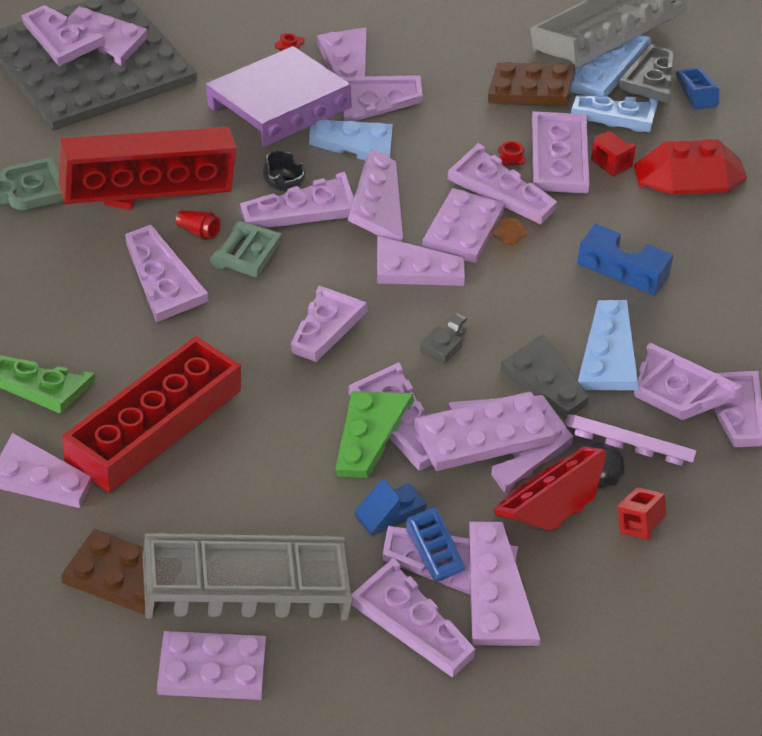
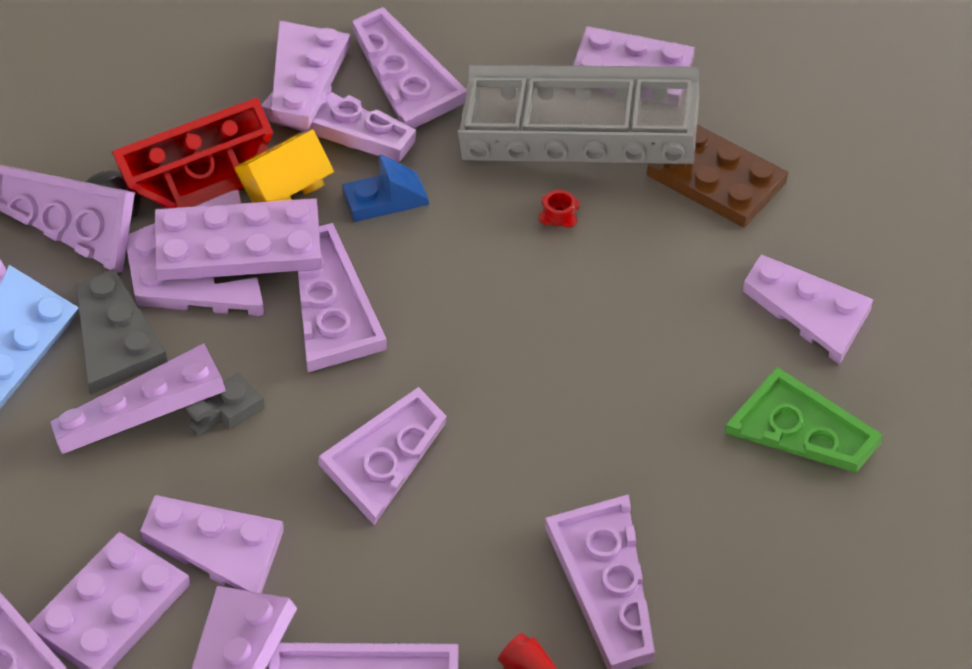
camera: 165 degrees left, 5 degrees up
(152, 413) = (653, 331): red brick -> none
(247, 514) = (559, 209): none -> red plate
(252, 254) = (456, 595): sand green plate -> none
(367, 429) = (379, 272): bright green wing -> none
(429, 524) = (357, 114): blue slope -> none
(473, 491) = (286, 169): none -> yellow brick
(496, 327) = (149, 396): none -> lavender wing
(510, 231) = (45, 563): clear orange plate -> none
(641, 512) = (96, 116): red brick -> none

